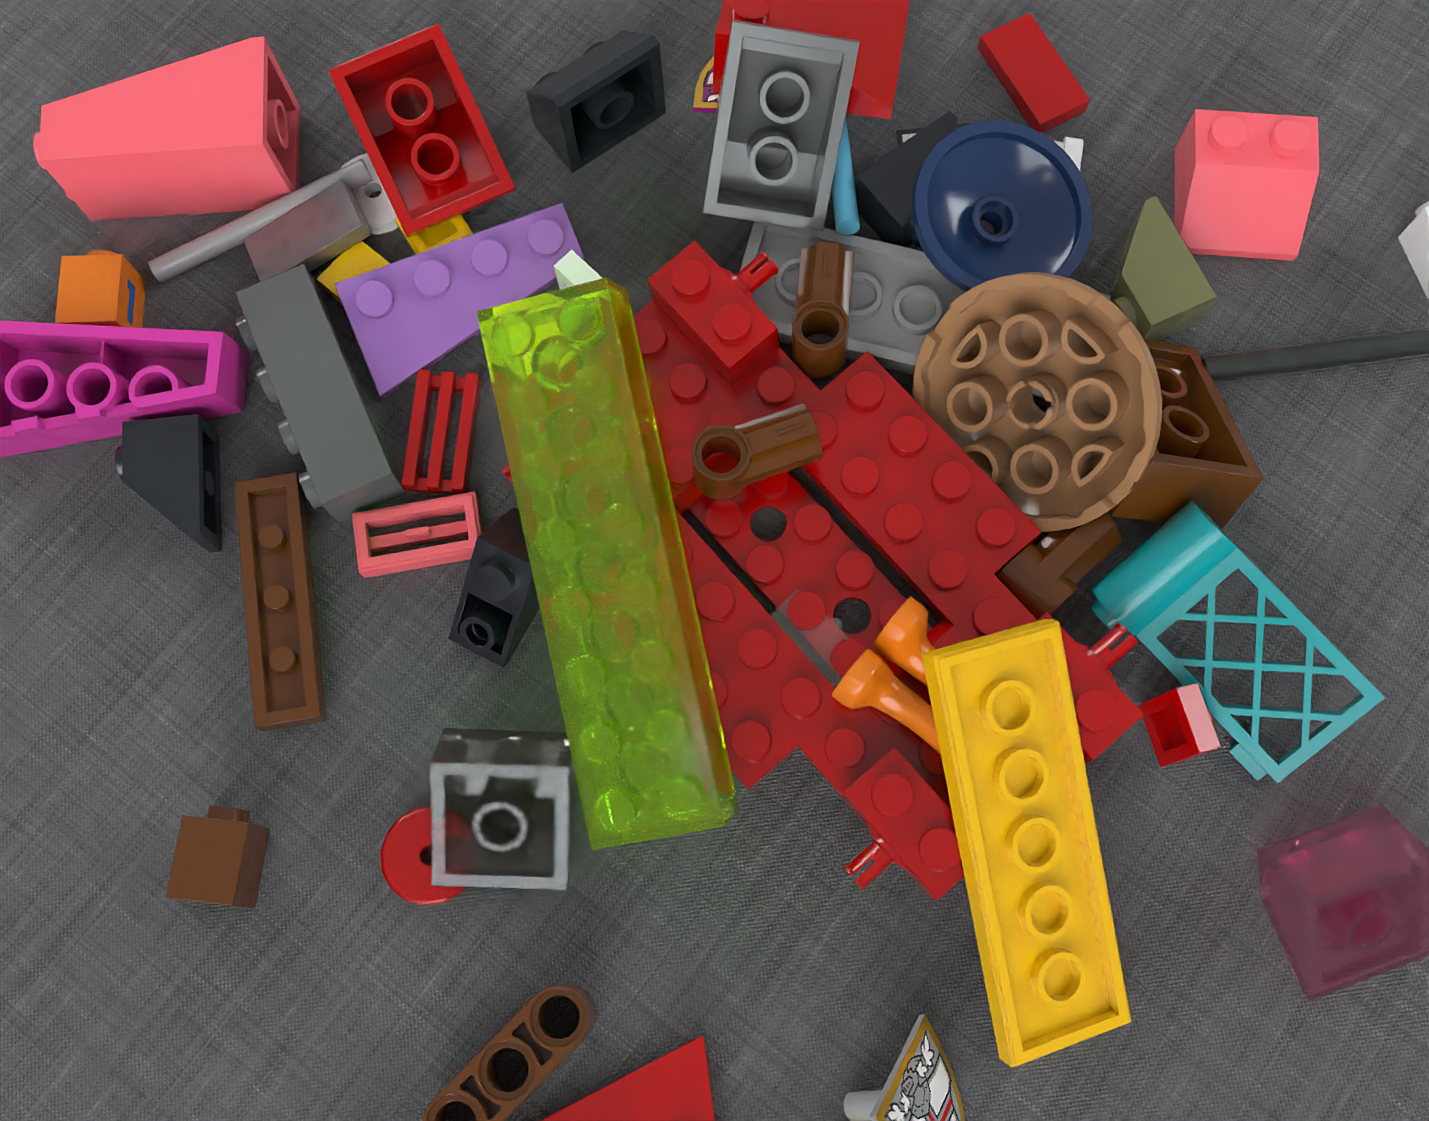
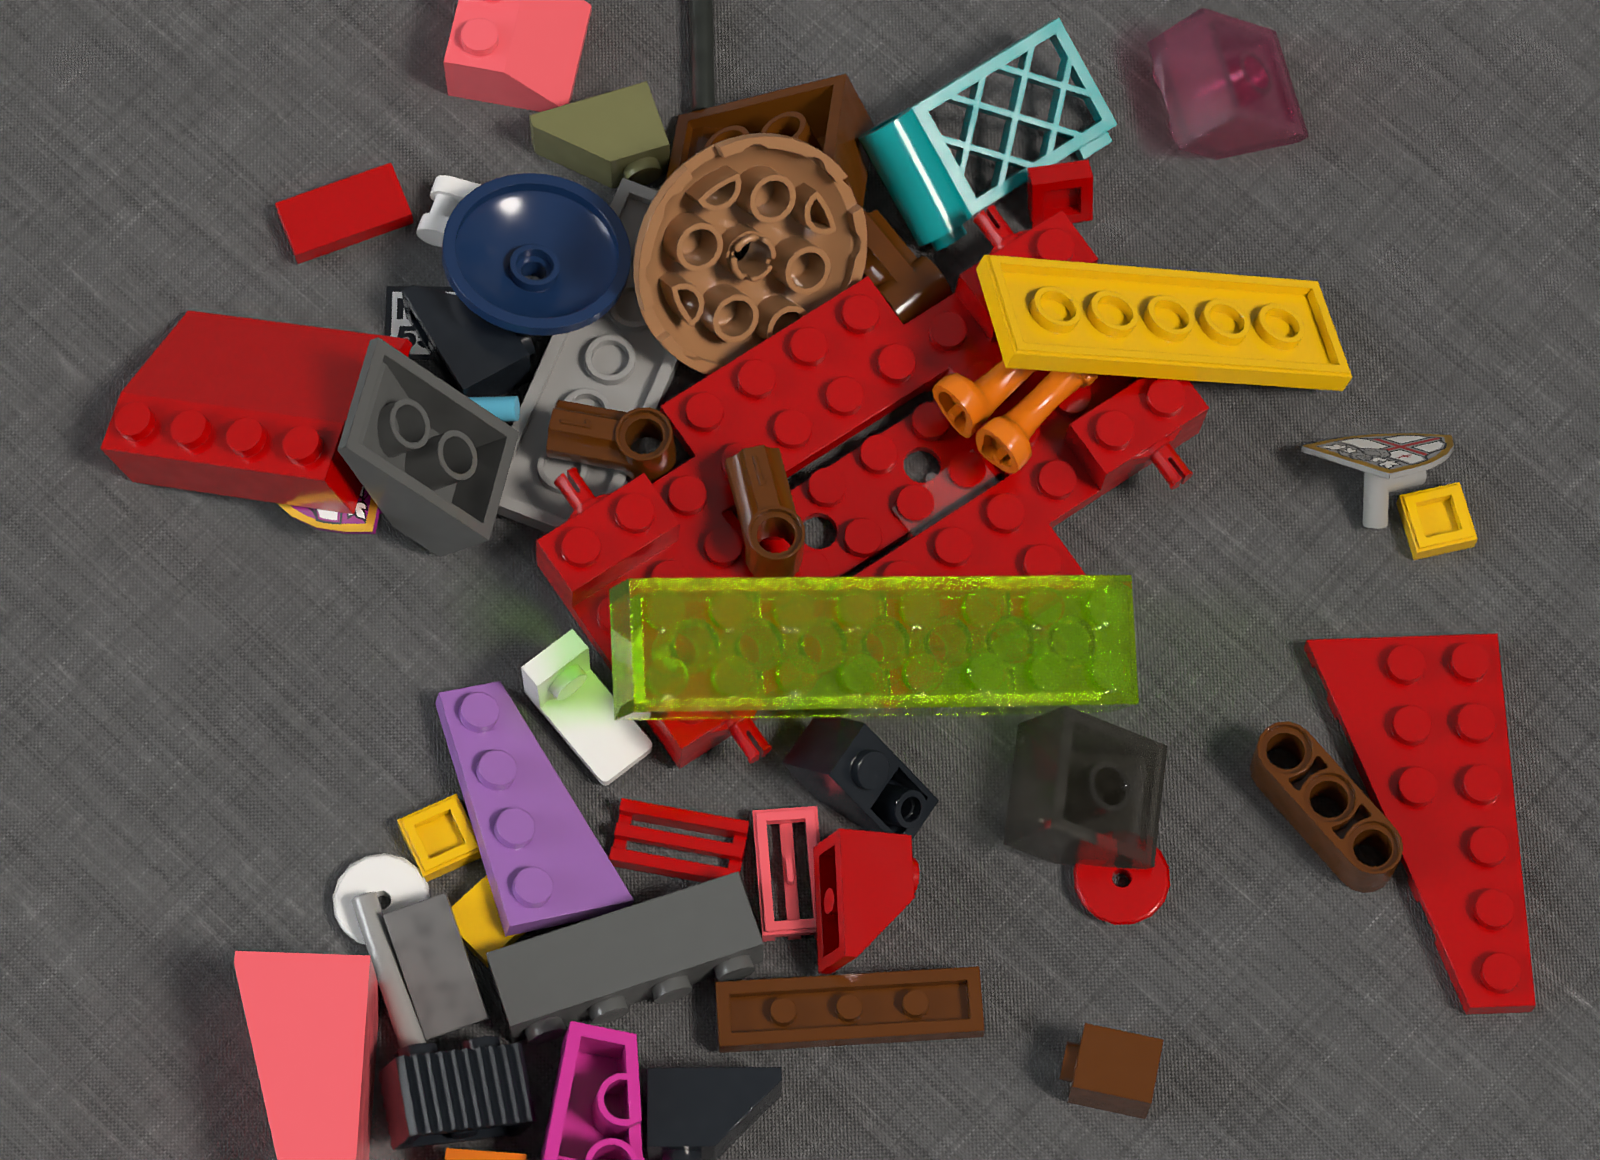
camera: 90 degrees left, 5 degrees down
(176, 259) = (456, 1093): none -> black brick
(385, 596) = (859, 890): none -> red slope
(422, 130) = (333, 829): red slope -> none
(600, 98) = (314, 642): black slope -> none

